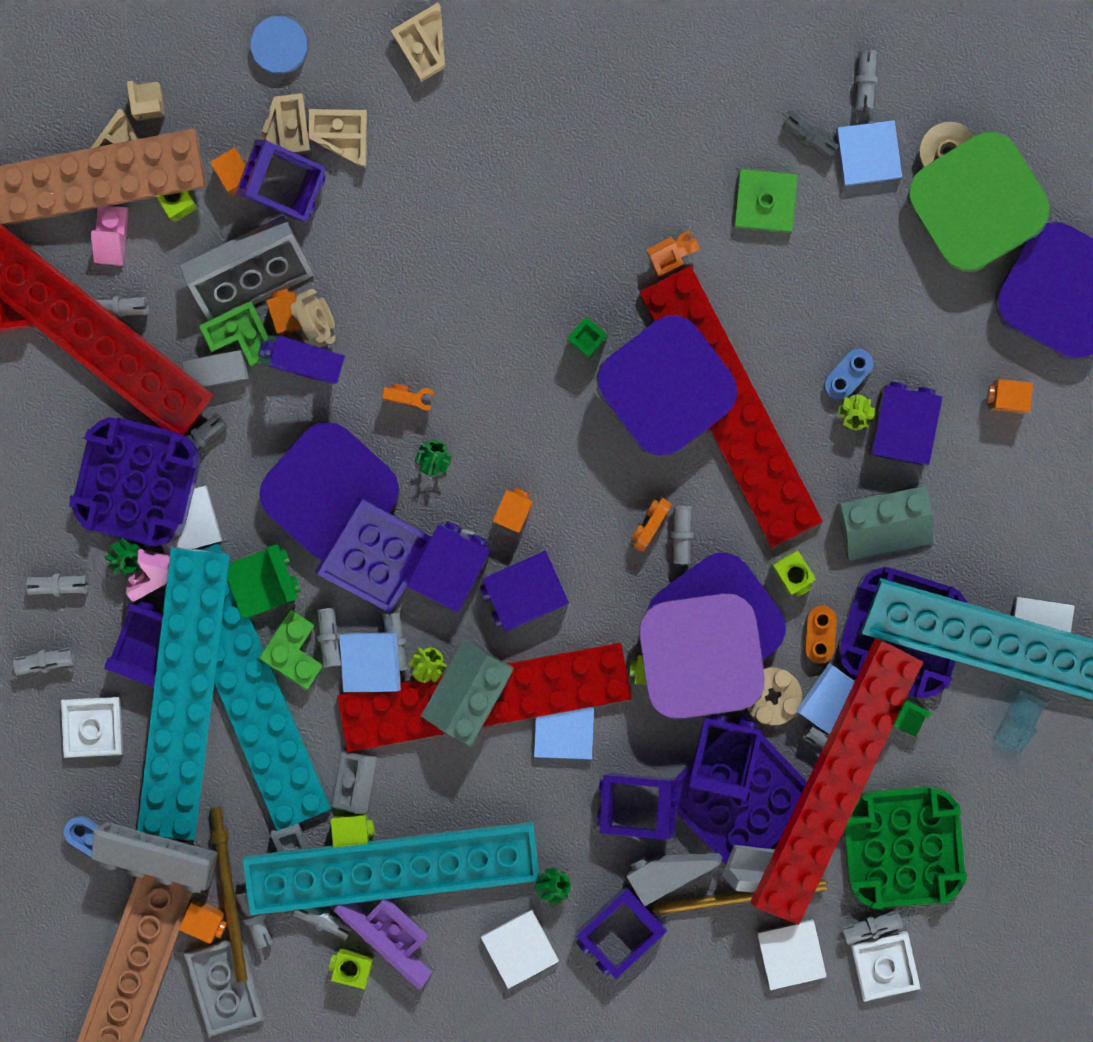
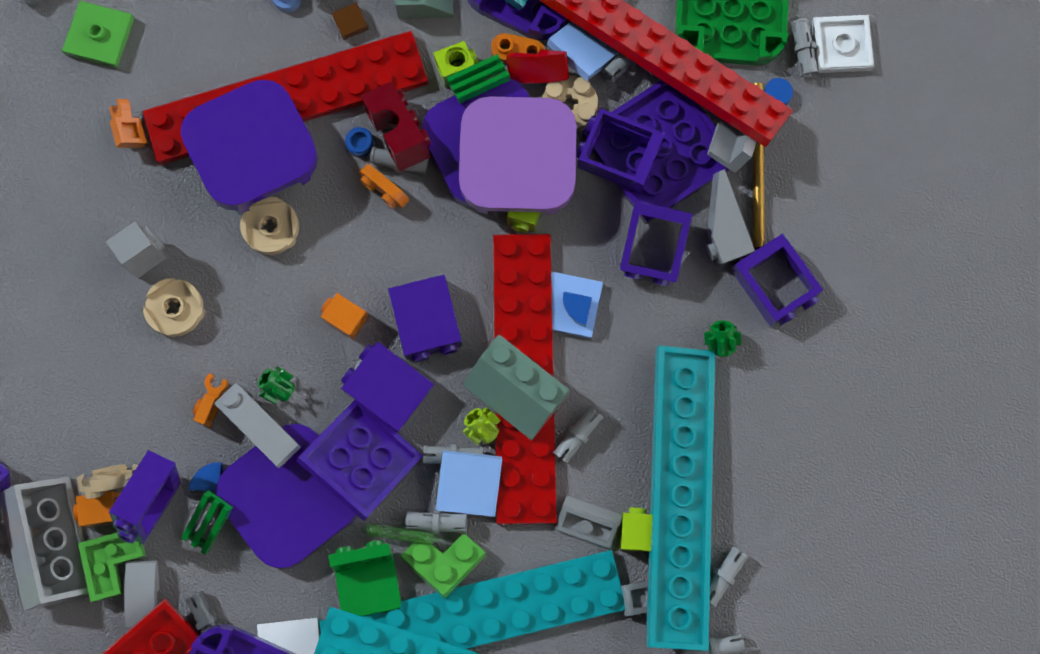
camera: 80 degrees left, 10 degrees down
(275, 412) = (197, 538): none -> green tile
(311, 578) = (405, 539): none -> bright green piece
(334, 409) = (207, 477): none -> blue tile
(363, 964) = (789, 549): lime brick -> none
(388, 451) = (257, 425): none -> light grey slope
(391, 935) = (748, 508): medium lavender bracket -> none
(435, 759) = (578, 434): none -> light grey pin
(494, 324) = (157, 304): none -> tan plate
(520, 948) = (780, 383): white tile -> none
(543, 296) = (137, 249): none -> light grey brick
(560, 738) = (577, 307): none -> blue tile
(585, 433) = (281, 238): none -> tan plate
(587, 338) = (189, 217): green panel -> none
(696, 490) = (359, 141): none -> blue tile
(732, 512) = (388, 109): none -> dark red arch
(787, 596) = (475, 75): none -> green tile
(791, 954) = (820, 126): white tile -> none
(802, 665) = (538, 68): none -> red slope
(821, 907) = (779, 89): none -> blue tile
(823, 455) = (350, 21): none -> reddish brown tile

